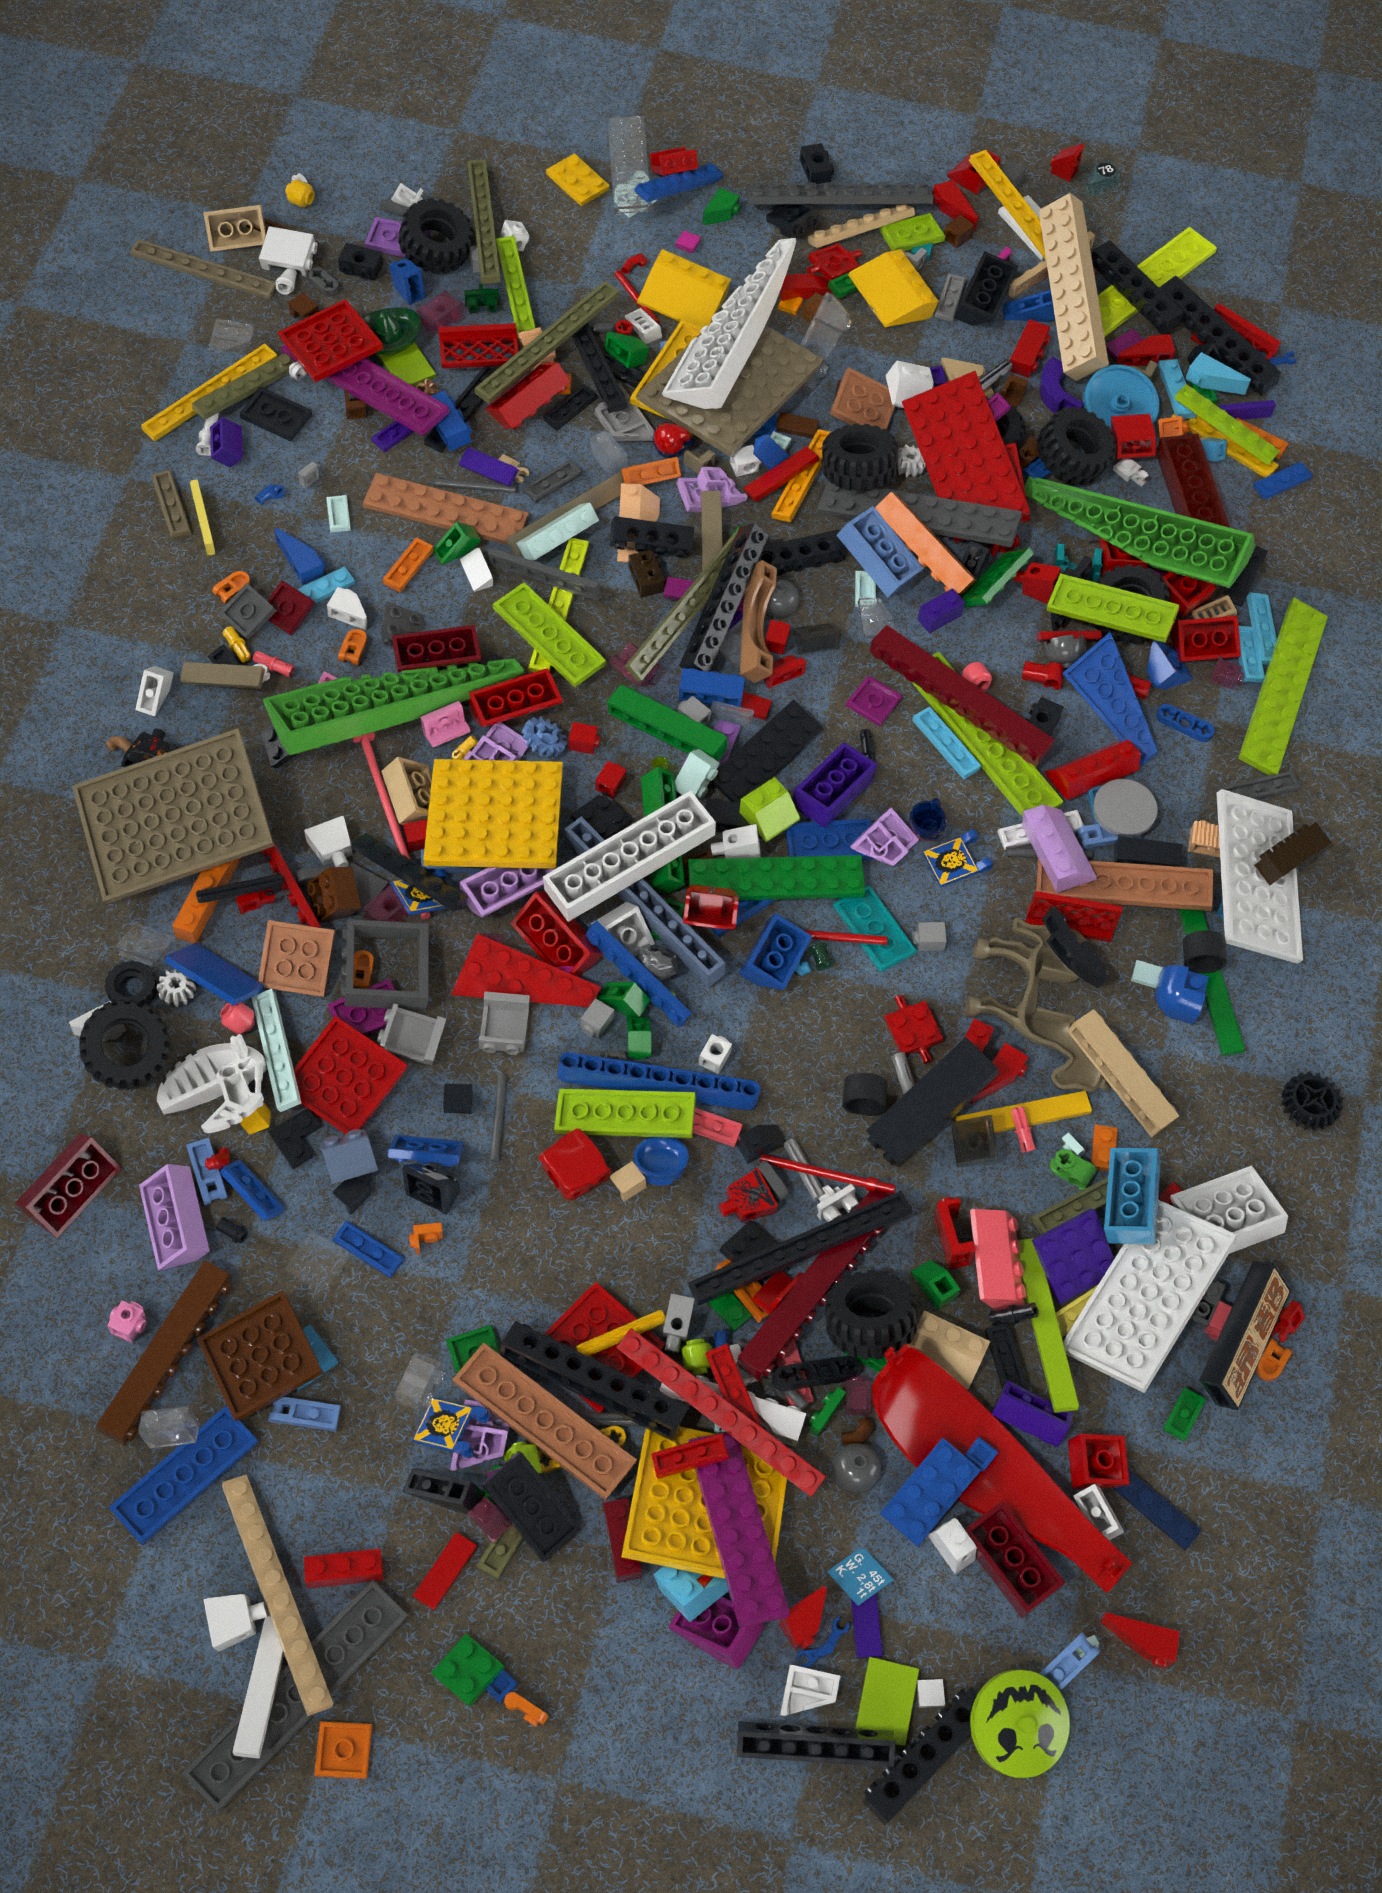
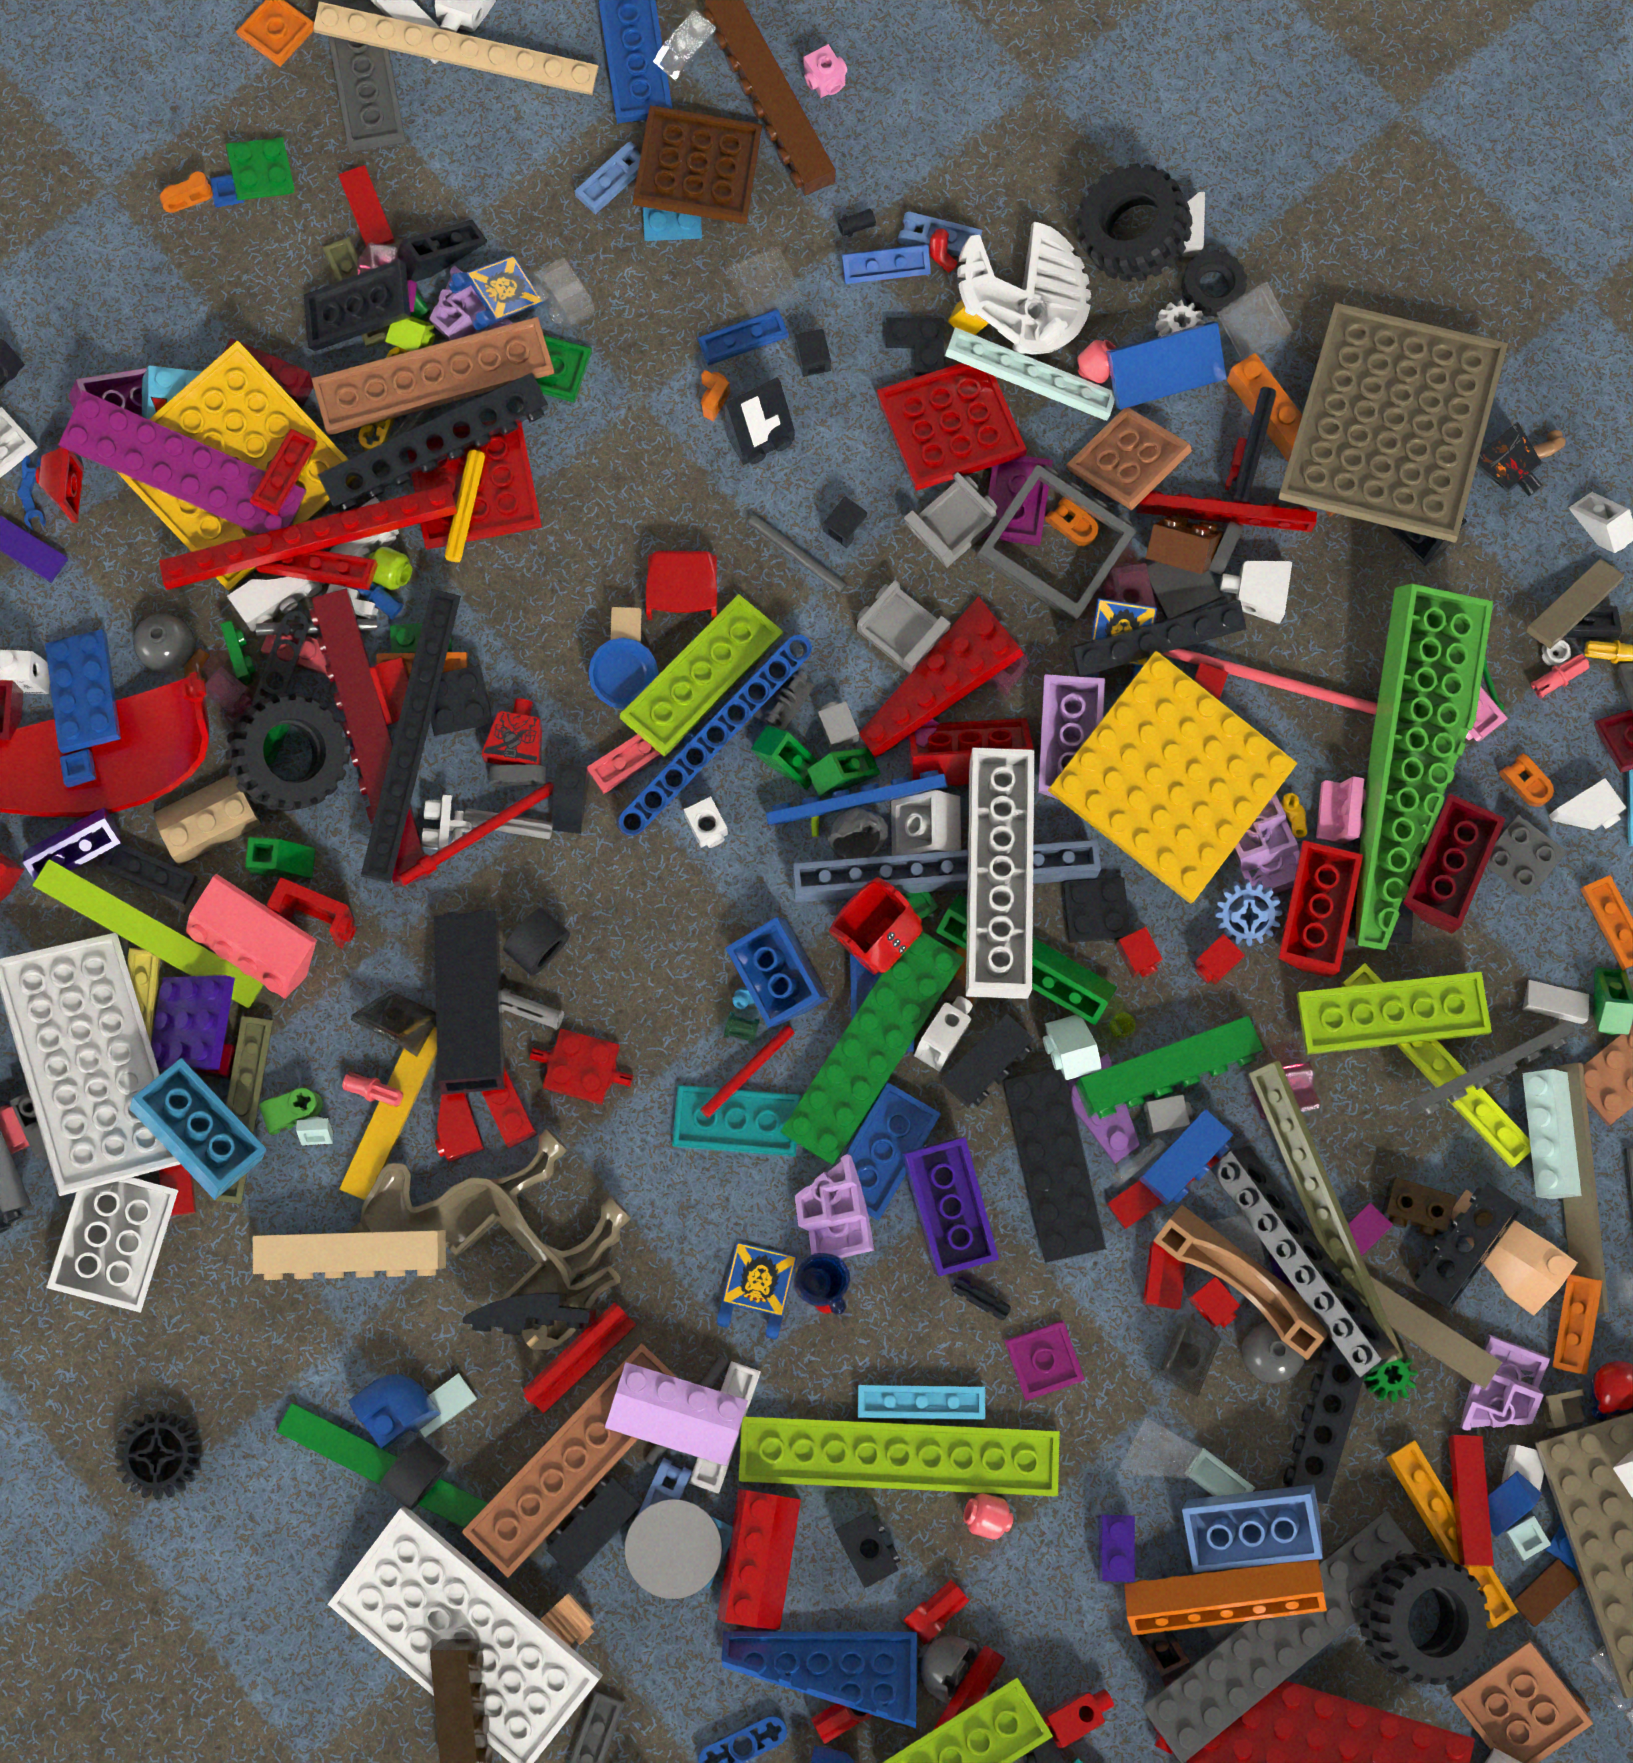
camera: 130 degrees right, 15 degrees up
(68, 1185) = (1016, 100): dark red slope -> none
(174, 1217) = (908, 177): lavender slope -> none
(343, 1568) = (433, 118): red brick -> none
(348, 1155) = (850, 366): sand blue slope -> none
(408, 789) = (1277, 713): tan slope -> none
(425, 1150) = (805, 448): blue plate -> none
(678, 1312) = (437, 568): light grey torso -> none
(769, 809) = (960, 1092): lime slope -> none
(860, 1576) = (62, 569): dark azure sticker -> none
(910, 461) = (1395, 1693): white gear -> none
(930, 936) = (676, 1171): light grey brick -> none
(961, 696) = (968, 1463): dark red brick -> none
(995, 577) = (1116, 1659): green plate -> none
(1014, 1314) = (179, 912): black pin -> none
(1103, 1140) = (290, 1169): orange plate -> none

